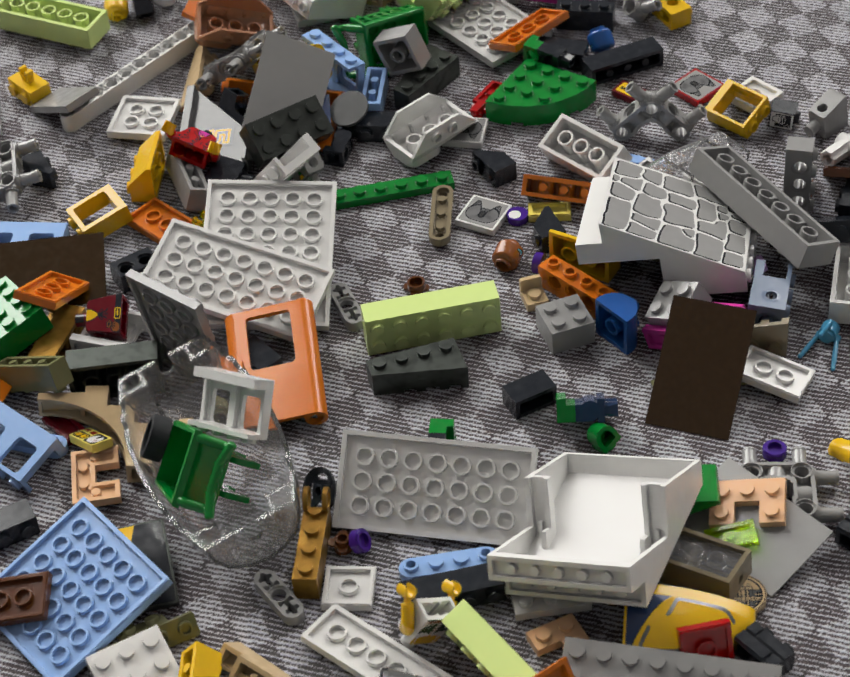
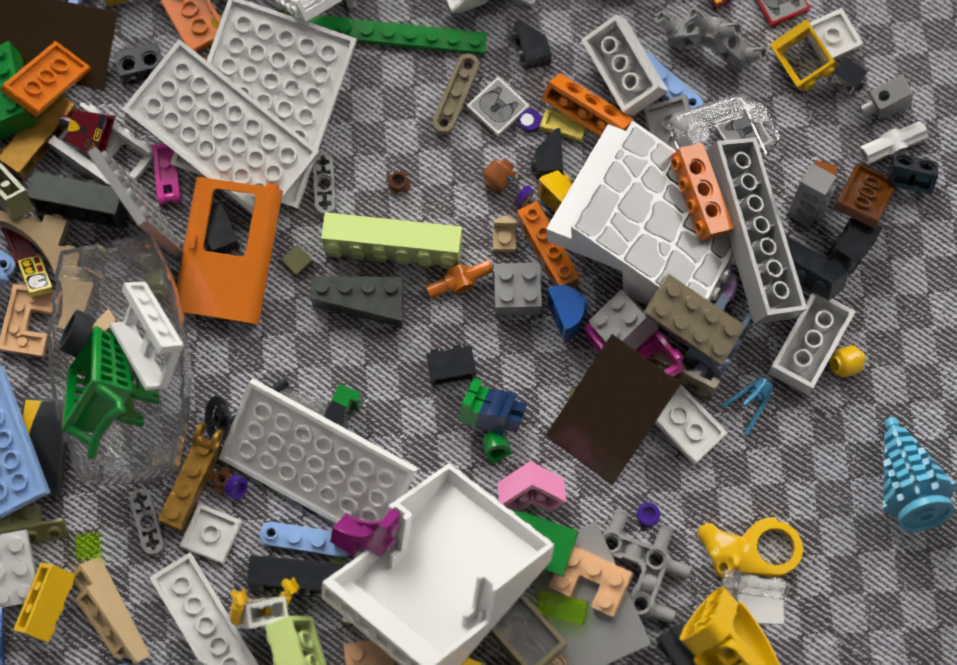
camera: 15 degrees right, 30 degrees up
(224, 632) = (88, 545): none -> clear neon green tile
(344, 365) = (297, 260): none -> olive tile
(506, 333) = (460, 278): none -> orange pin
(524, 518) = (355, 534): none -> magenta arch
(655, 443) = (531, 486): none -> bright pink brick
(701, 190) = (704, 180): none -> orange brick
(742, 274) = (694, 319): none -> dark tan plate

